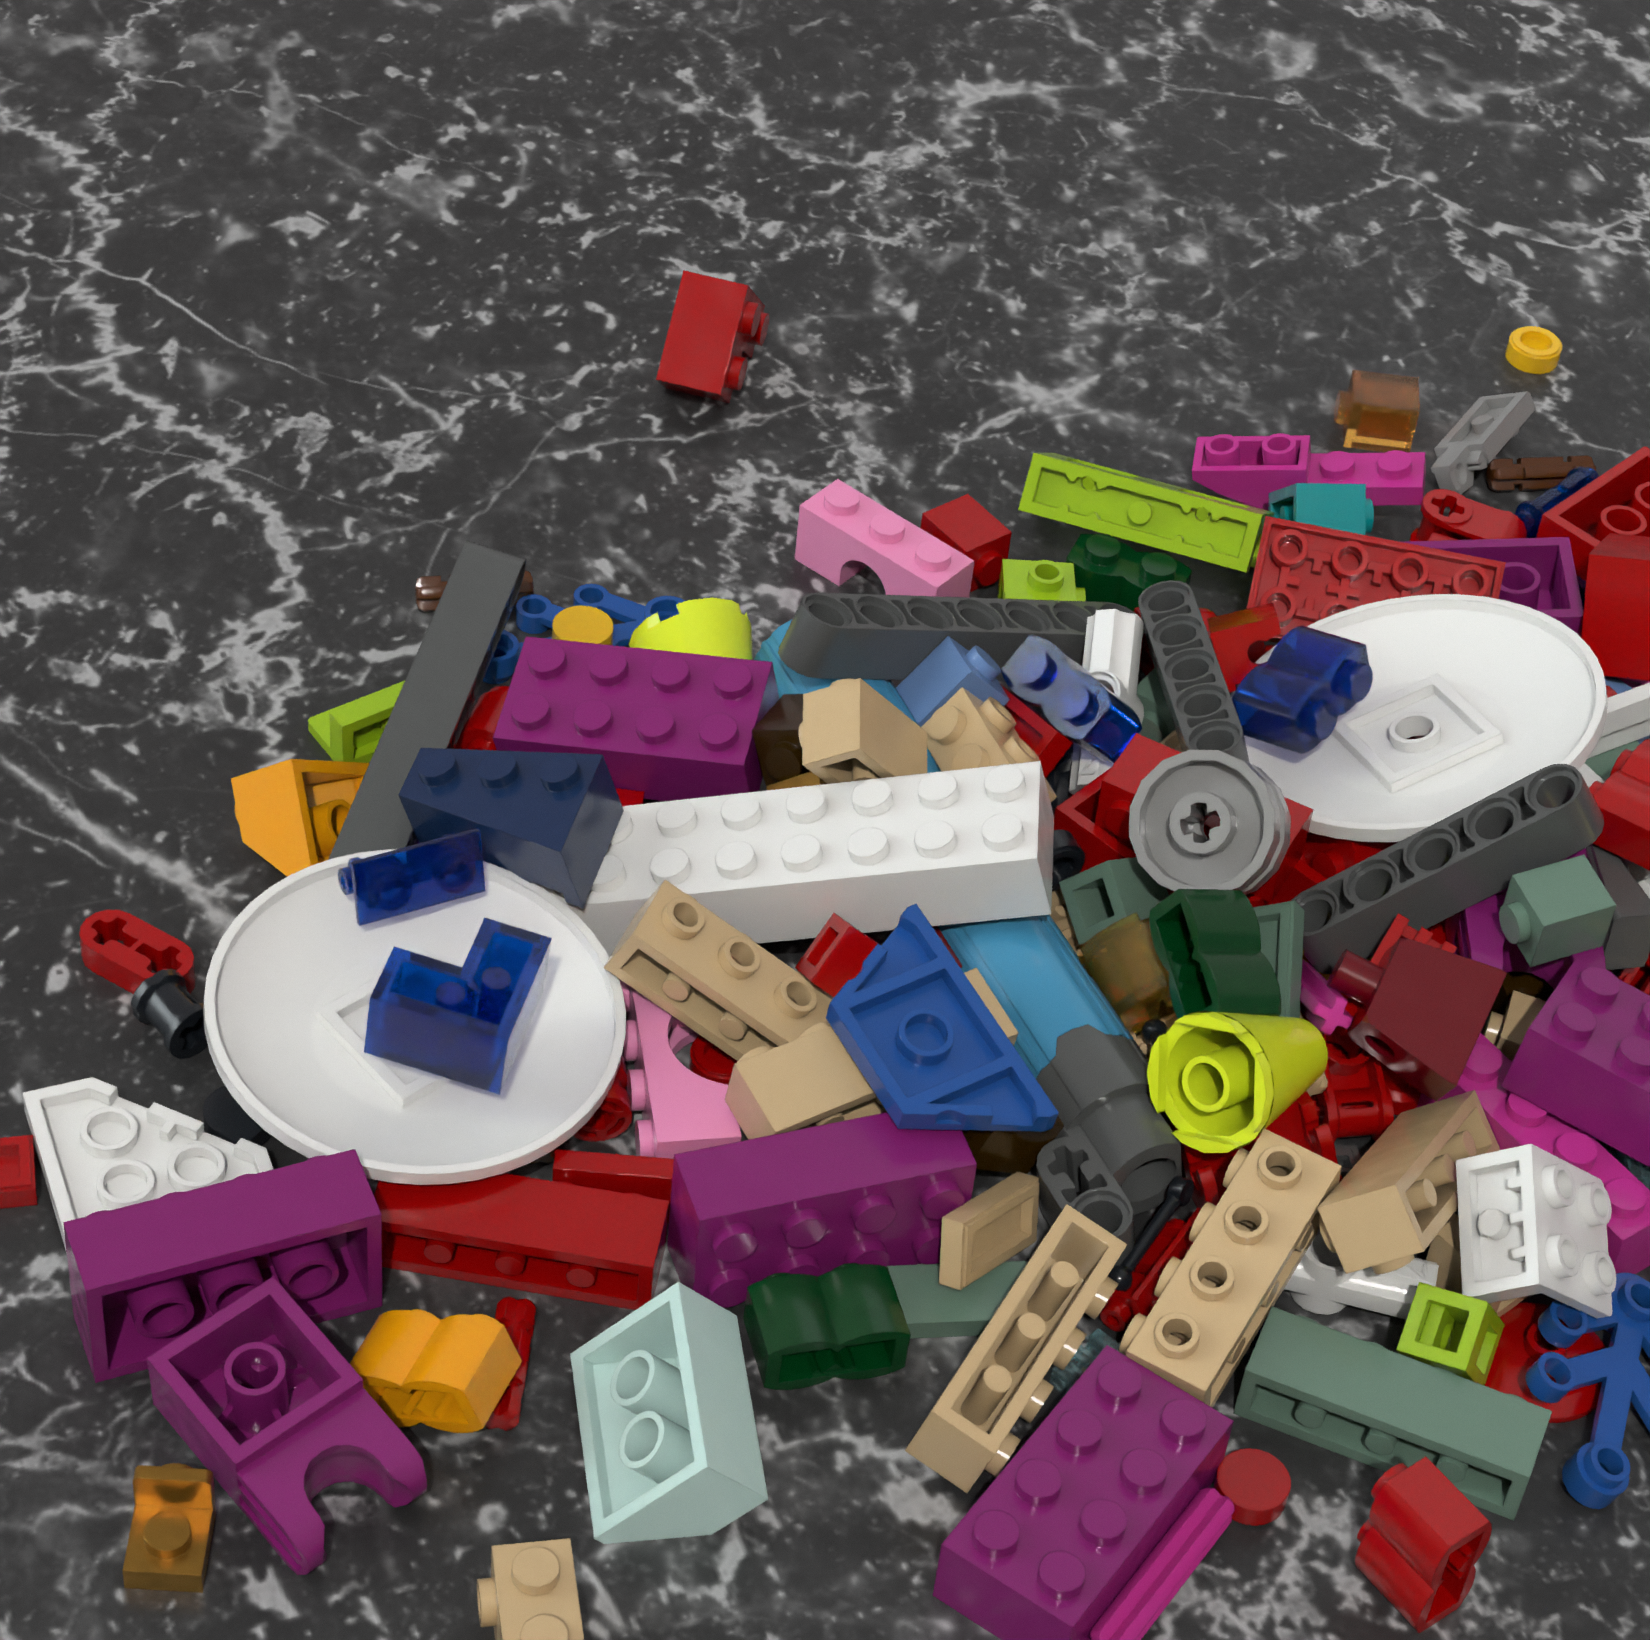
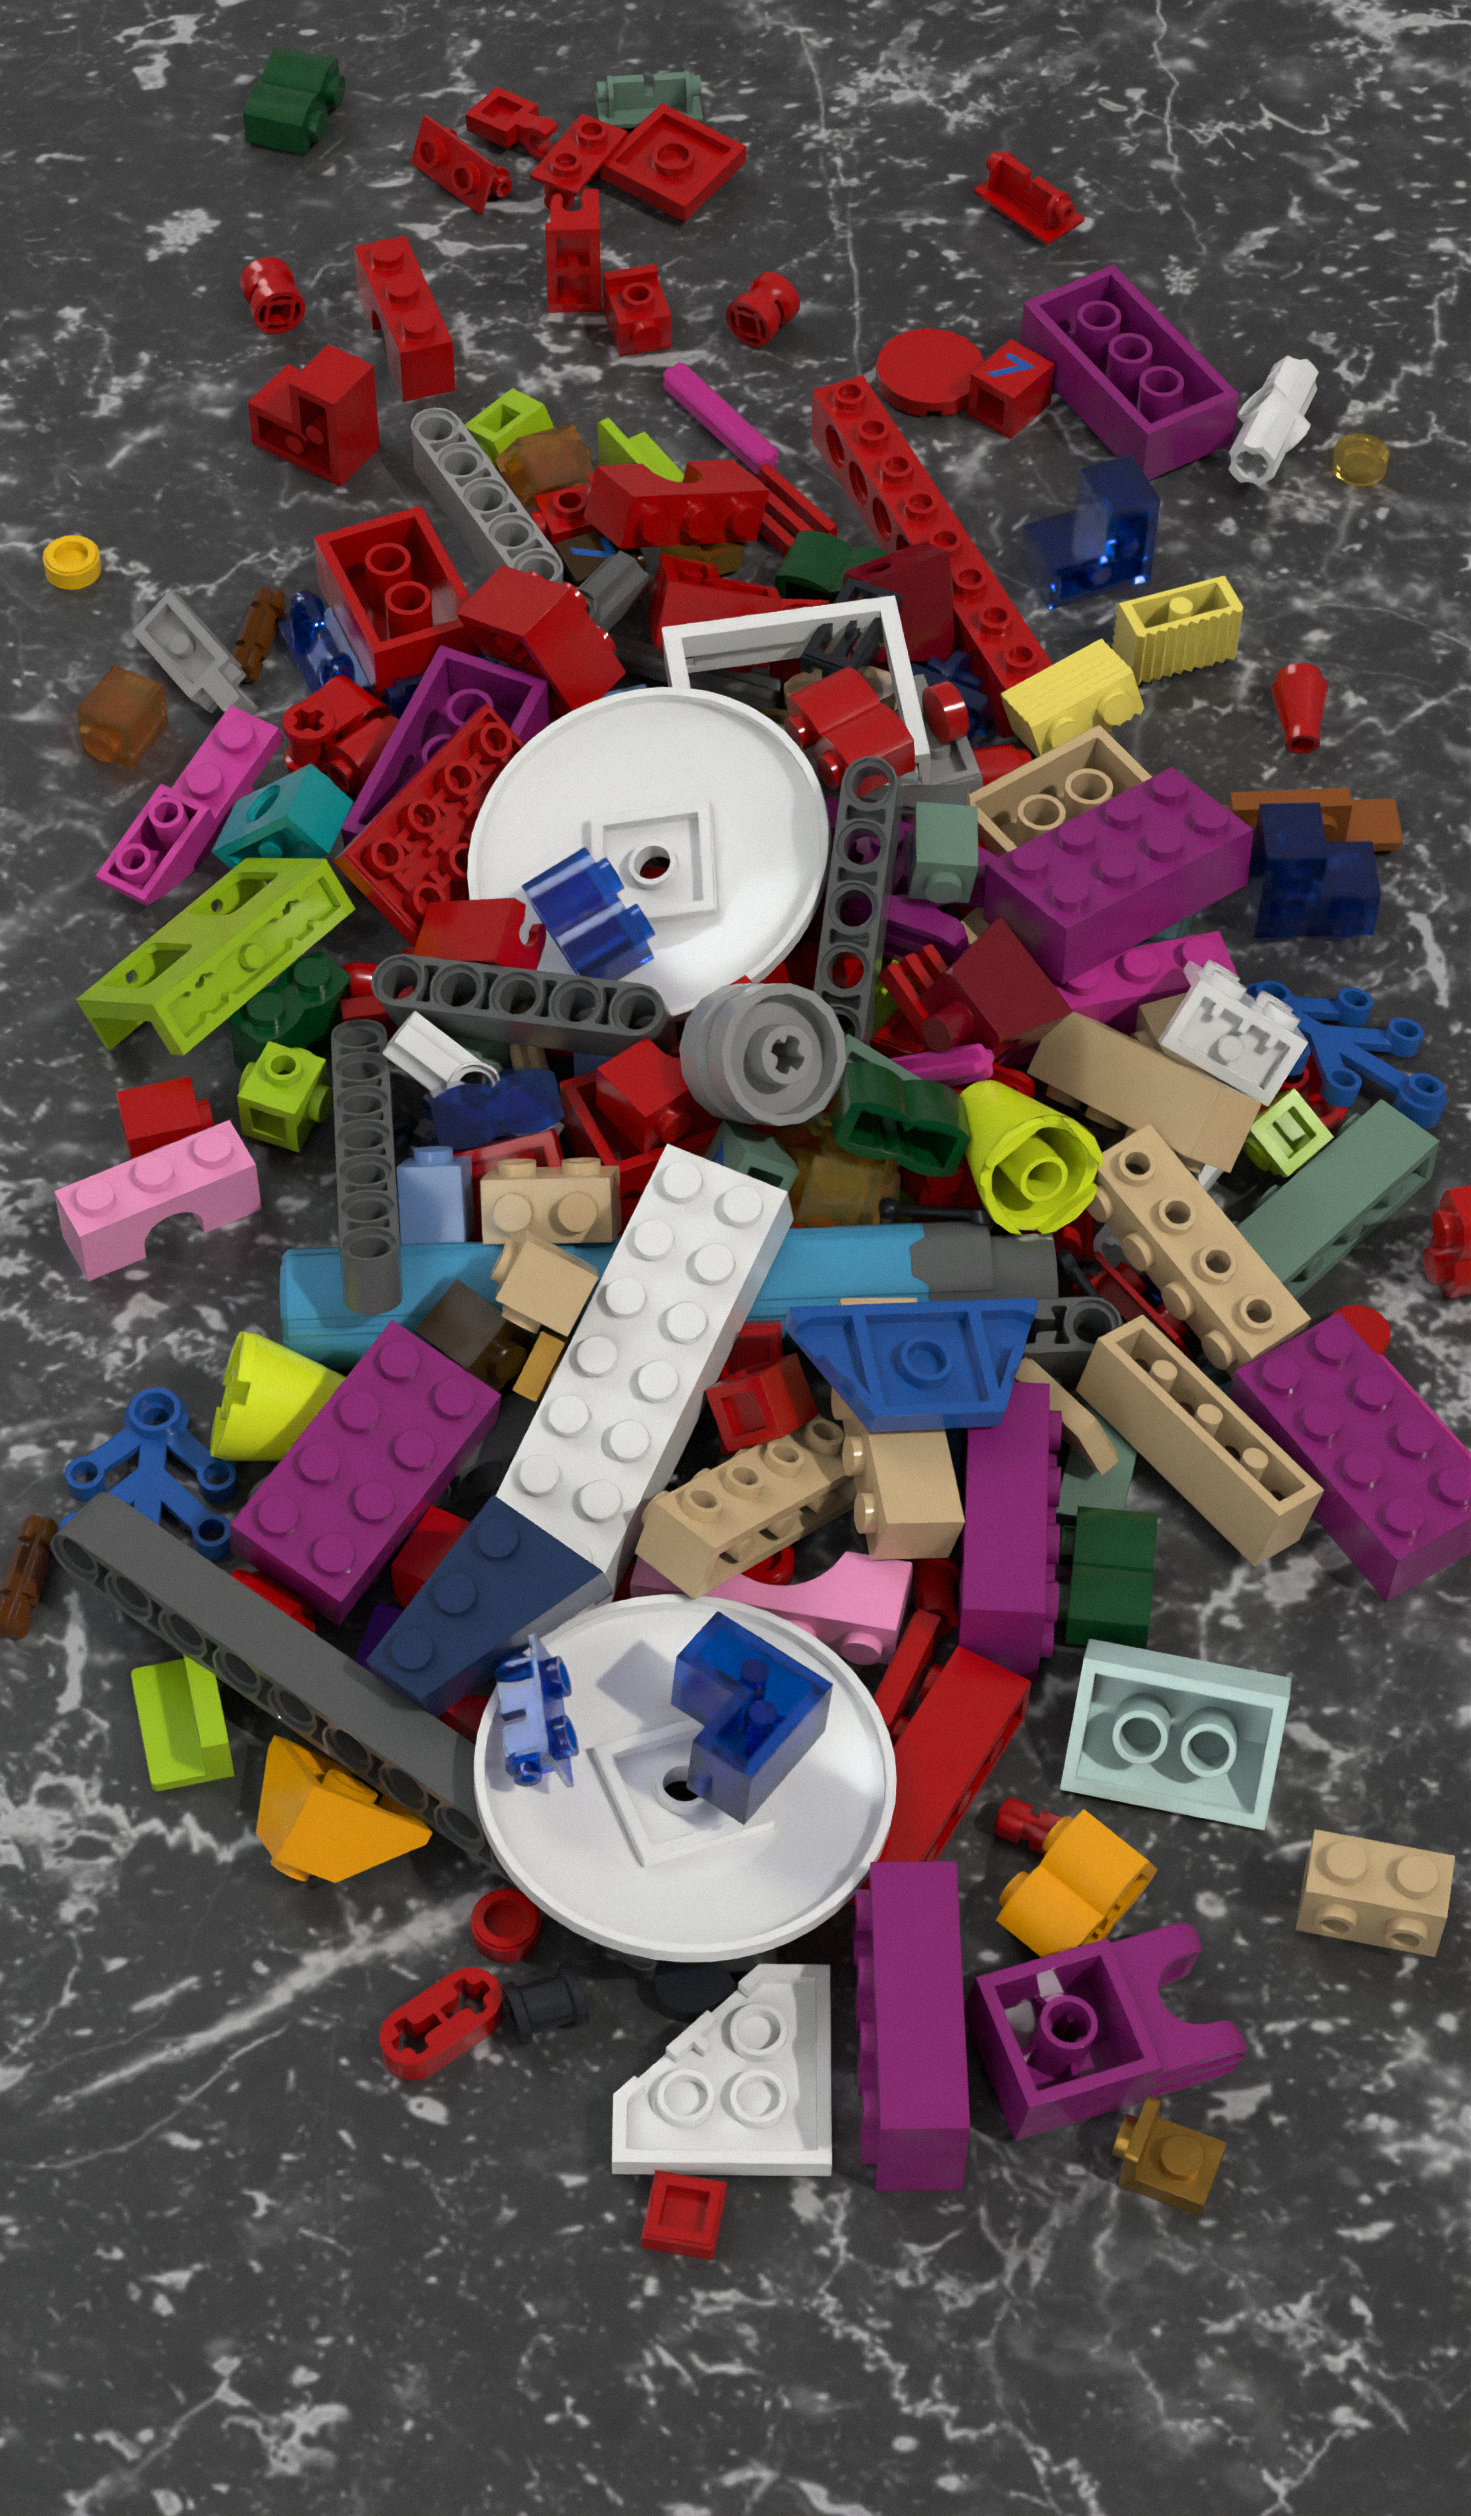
camera: 65 degrees left, 10 degrees up
(583, 625) = (155, 1491): yellow tile -> none

